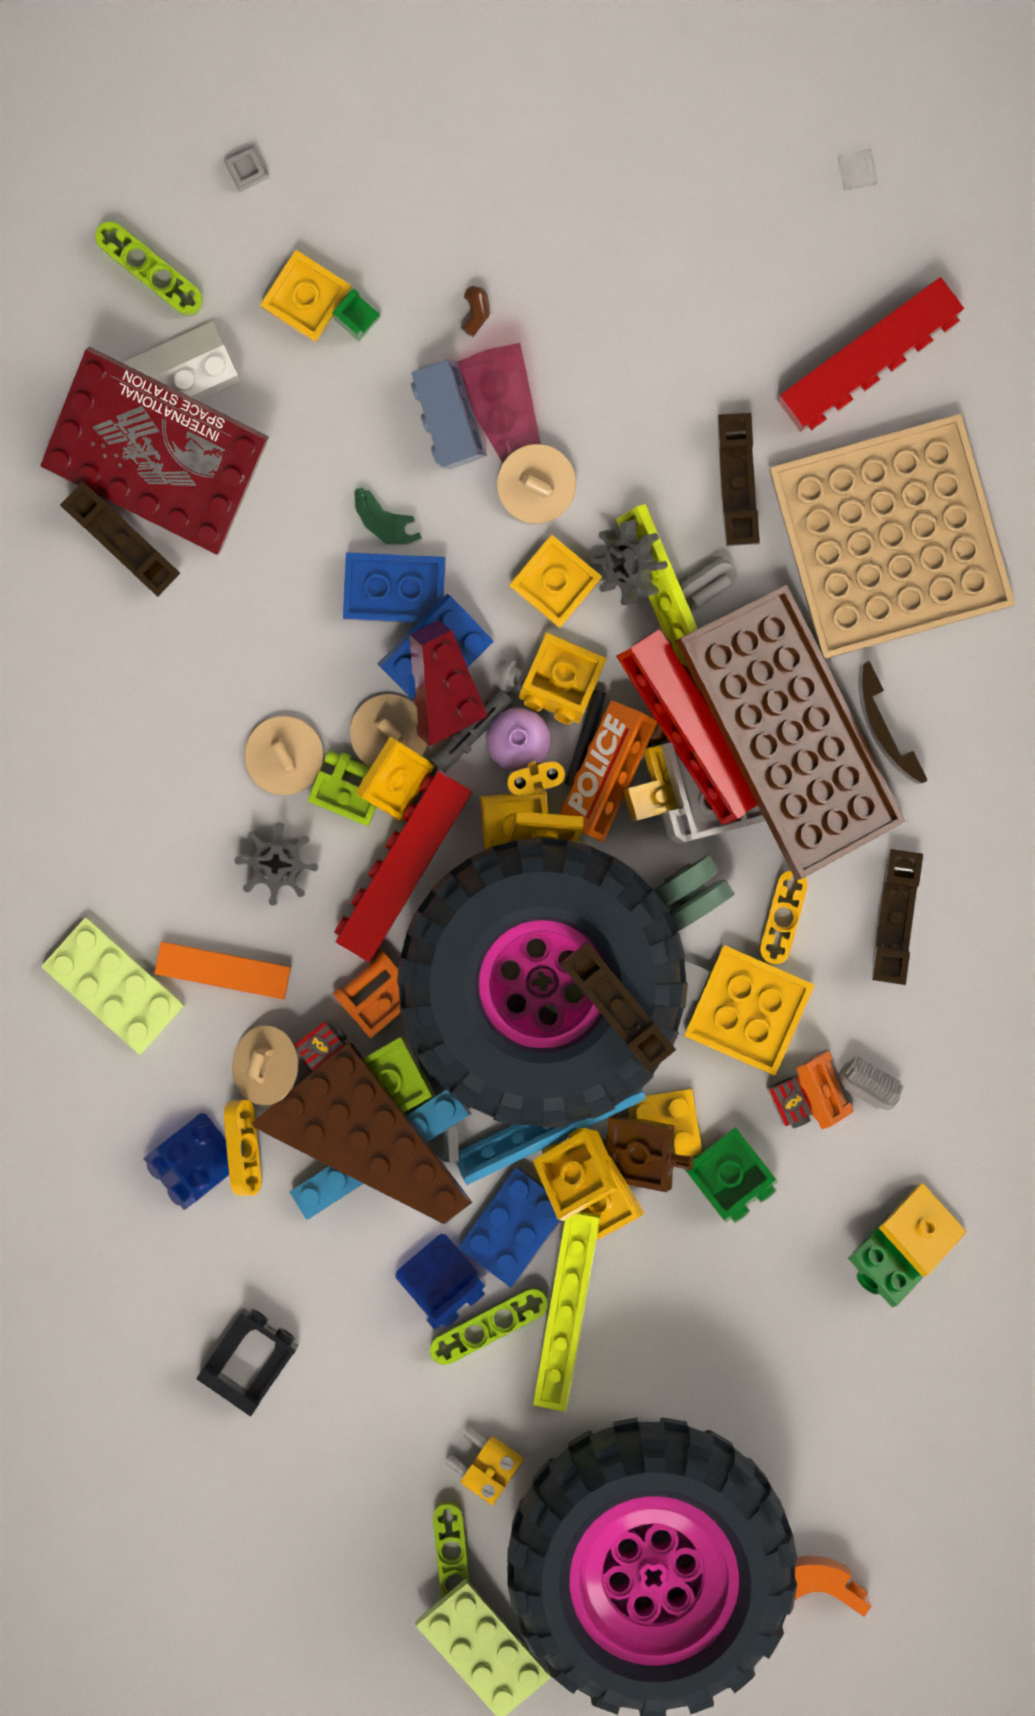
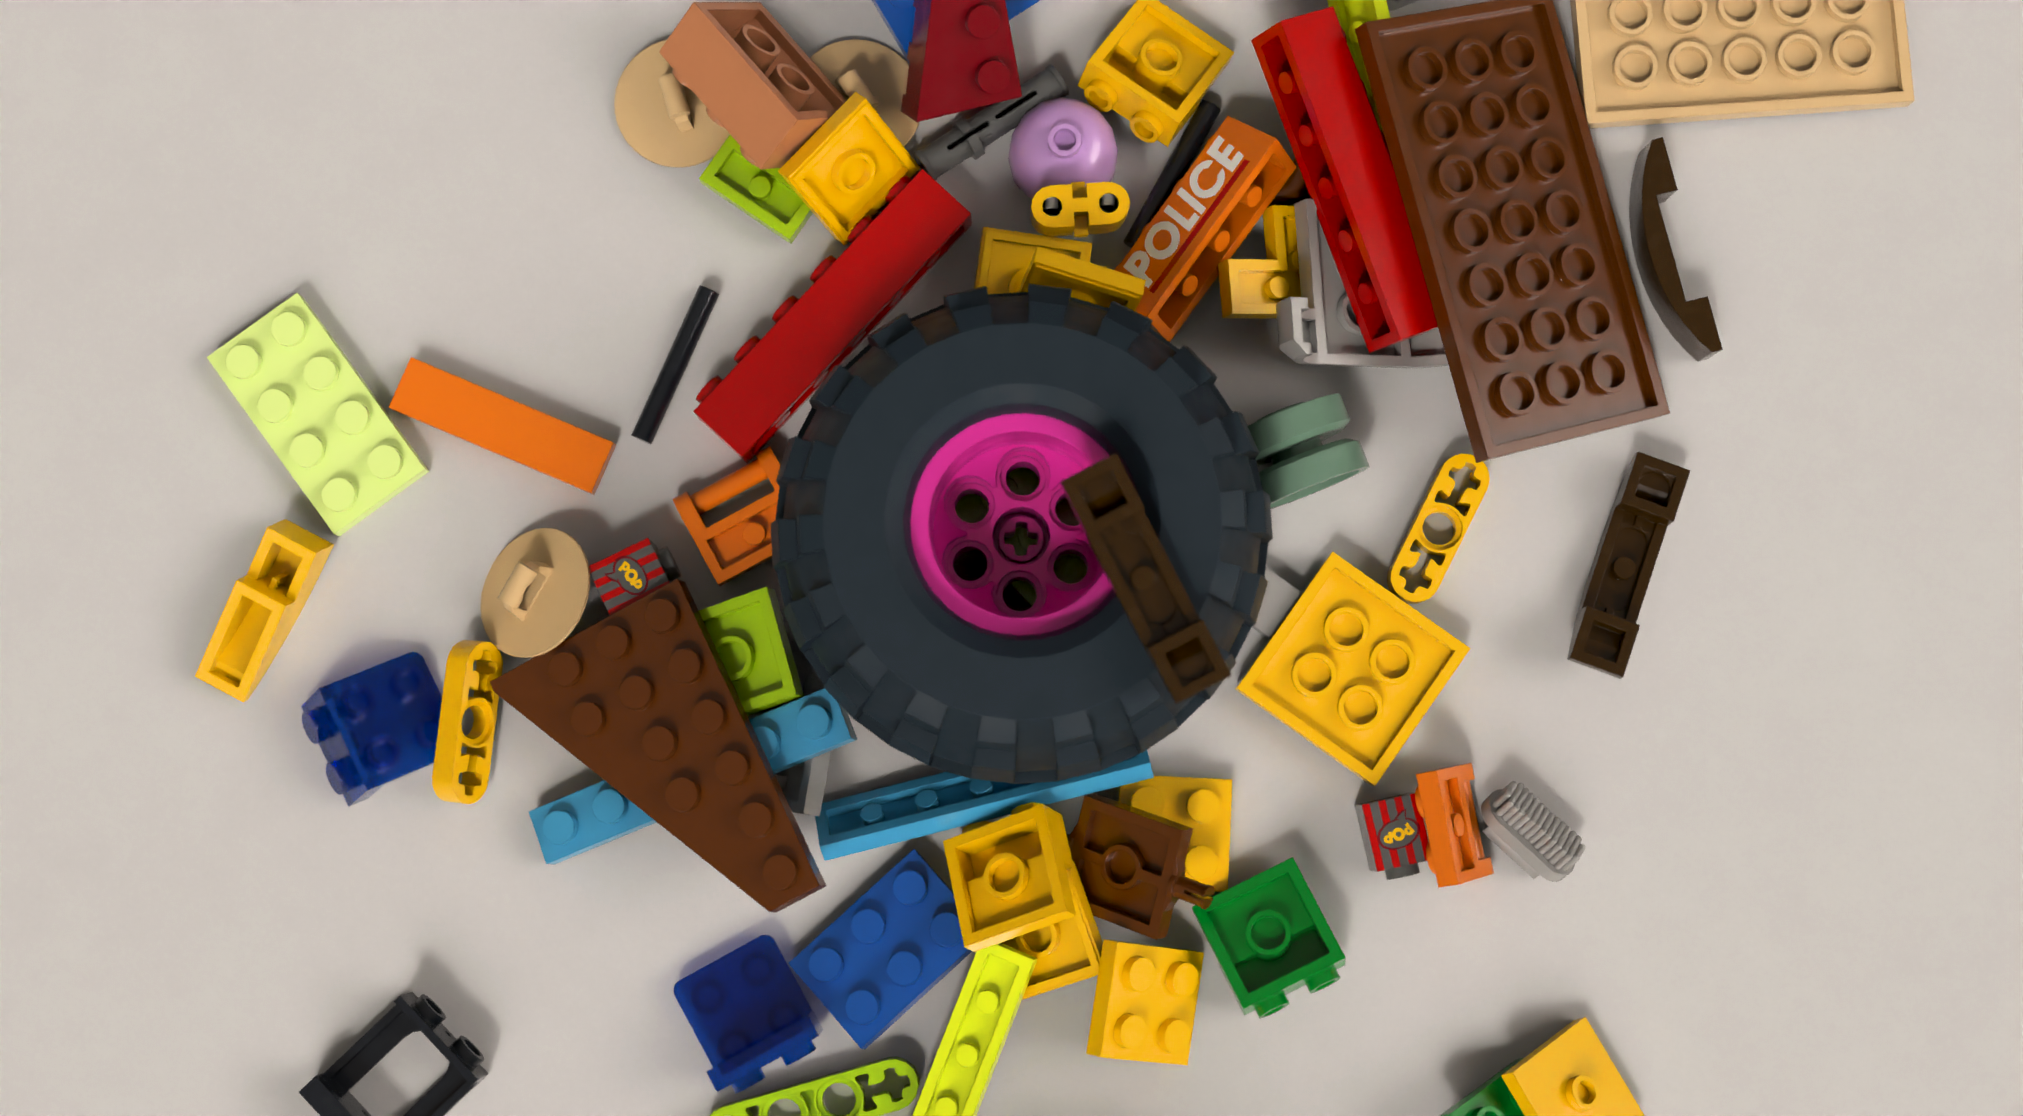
camera: 10 degrees right, 5 degrees down
(109, 1107) = (263, 608): none -> yellow slope
(275, 880) = (617, 249): dark grey gear -> none
(316, 913) = (675, 364): none -> black bar
(328, 738) = (751, 78): none -> nougat slope
(507, 675) = (1068, 46): light grey plate -> none
(667, 1228) = (1144, 1002): none -> yellow plate

